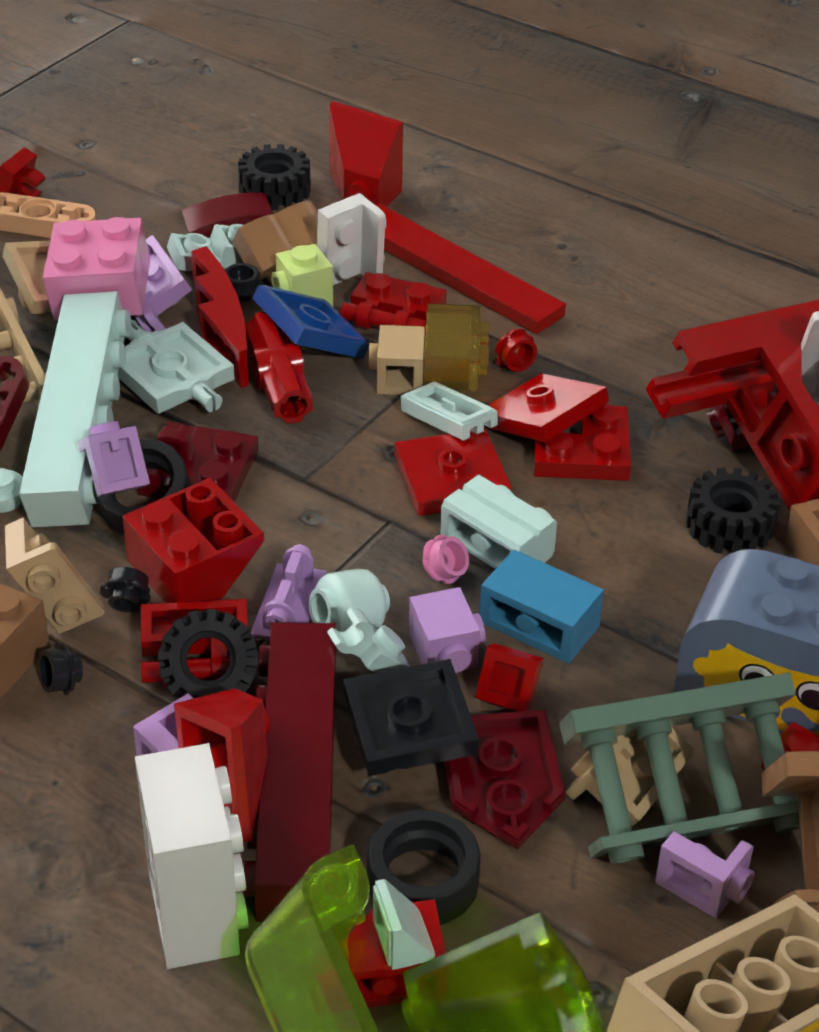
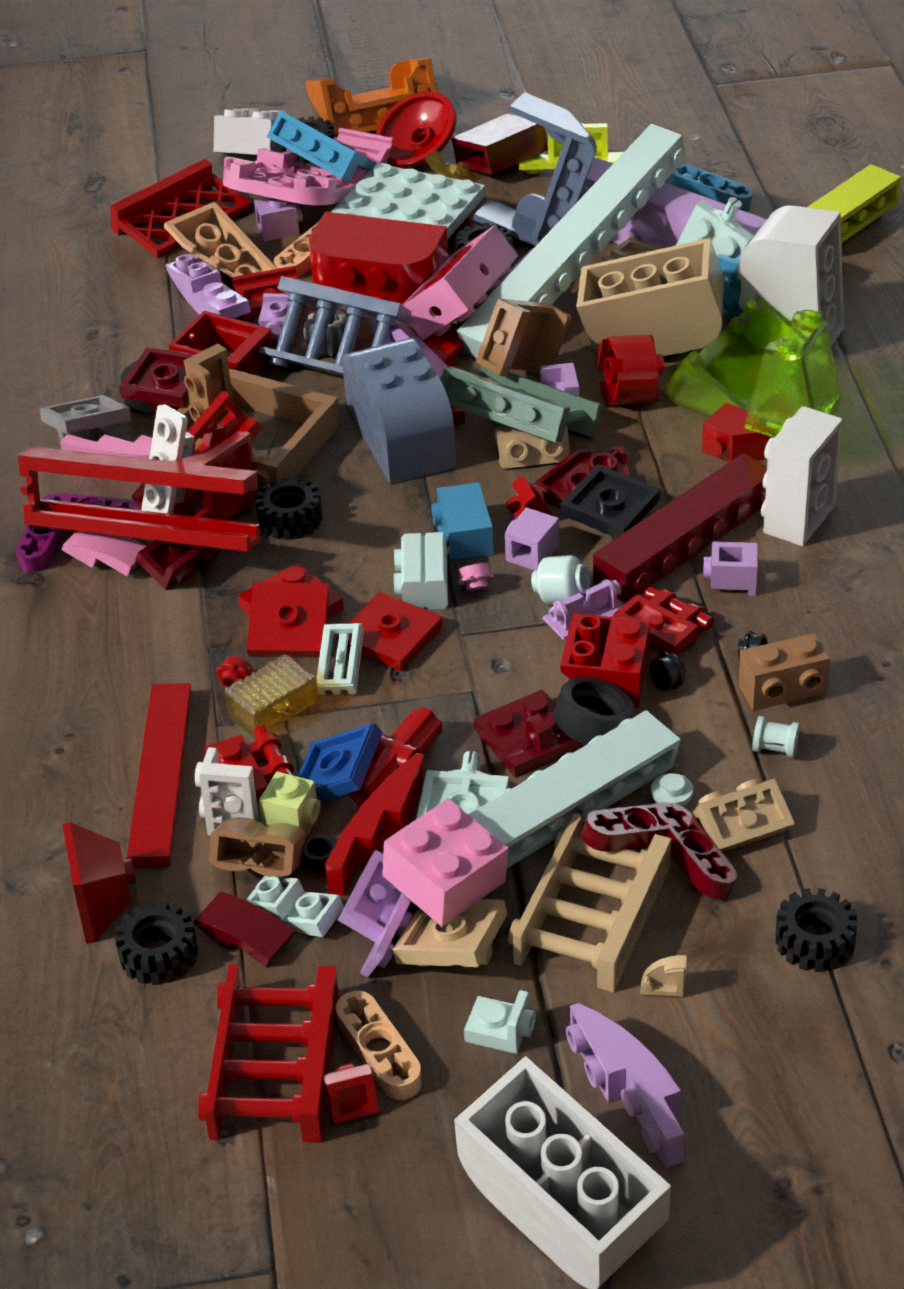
camera: 130 degrees left, 0 degrees up
(49, 576) = (719, 665): tan bracket -> none
(72, 183) = (314, 1034): none -> red fence
(115, 458) = (605, 704): lavender bracket -> none
(203, 625) = (679, 579): black tyre -> none
(236, 731) = (730, 508): red slope -> none
(376, 647) = (585, 542): light aqua plate -> none
(398, 359) = (316, 708): tan brick -> none
(400, 927) = (736, 413): light aqua slope -> none
(430, 832) = (680, 442): black tyre -> none
(639, 921) = (630, 369): none -> red brick

